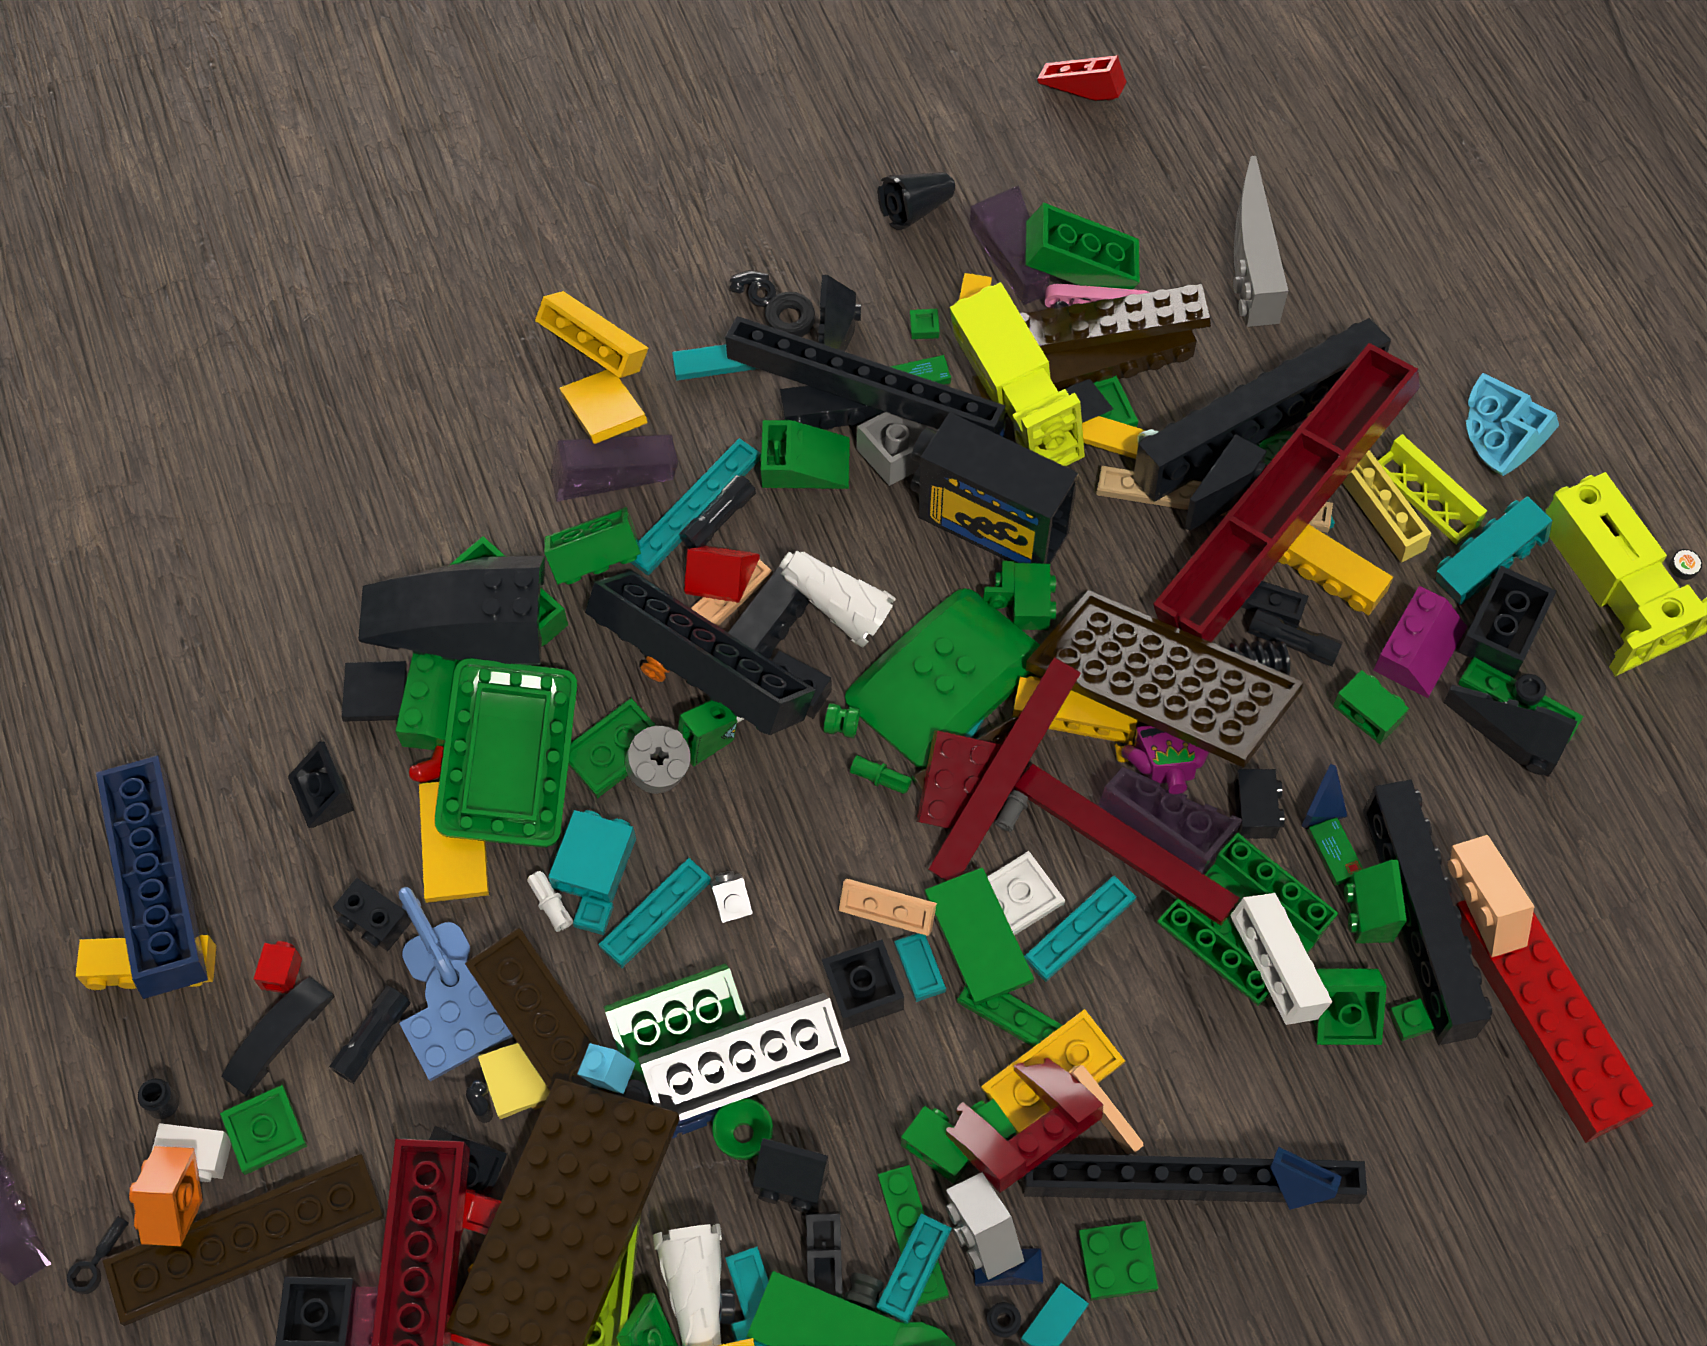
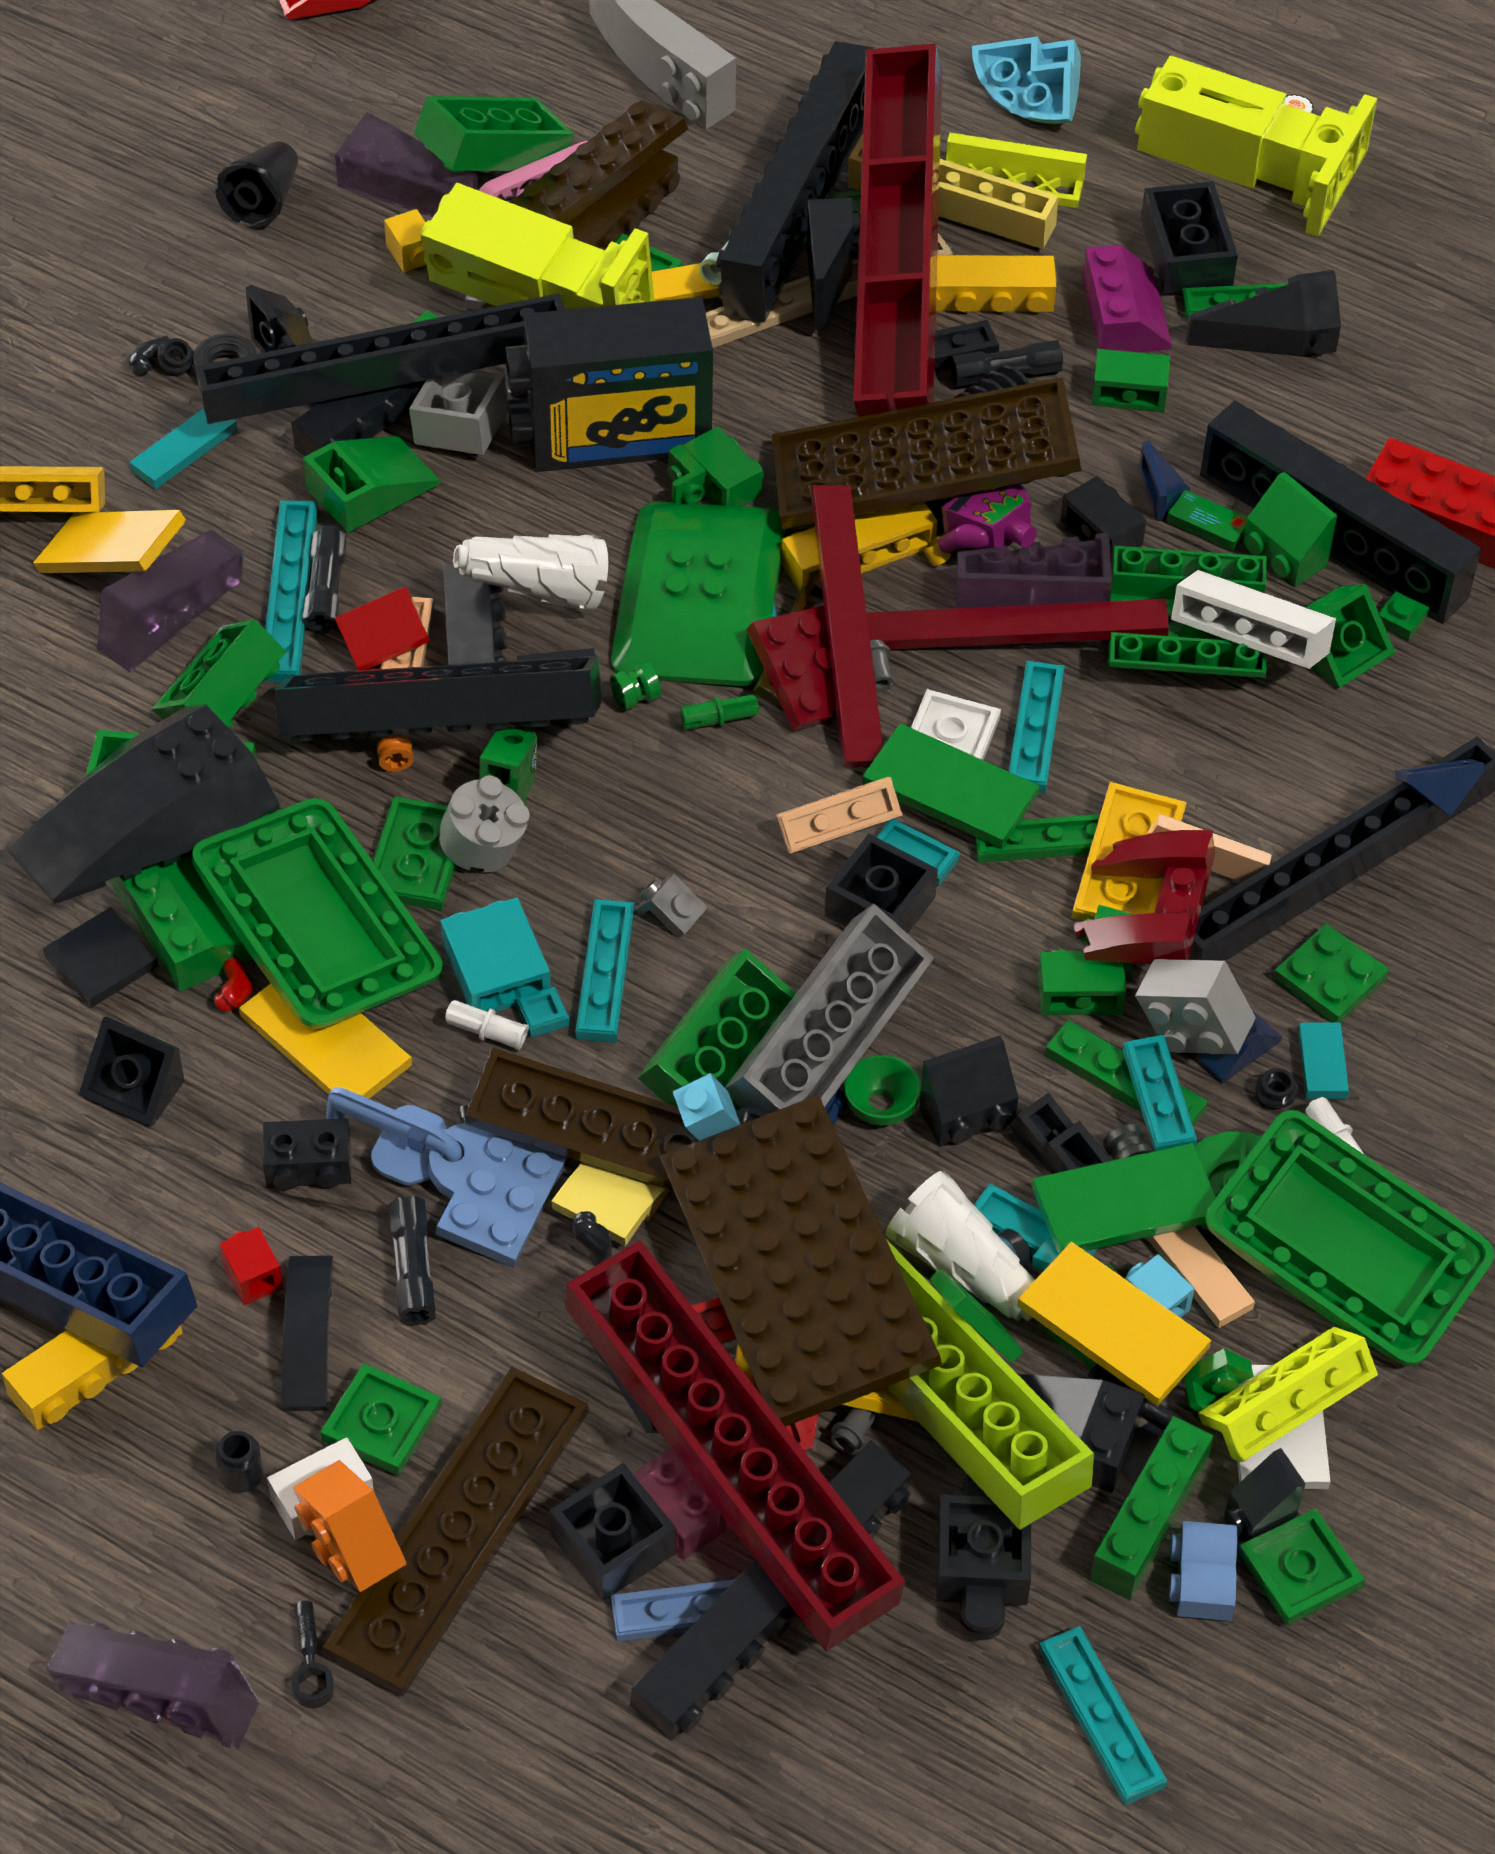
camera: 40 degrees left, 10 degrees down
(924, 324) = (379, 293): green plate -> none
(1492, 895) = (1392, 448): light nougat wedge -> none
(1497, 546) = (1124, 177): teal wedge -> none
(1529, 689) = (1255, 279): black tile -> none

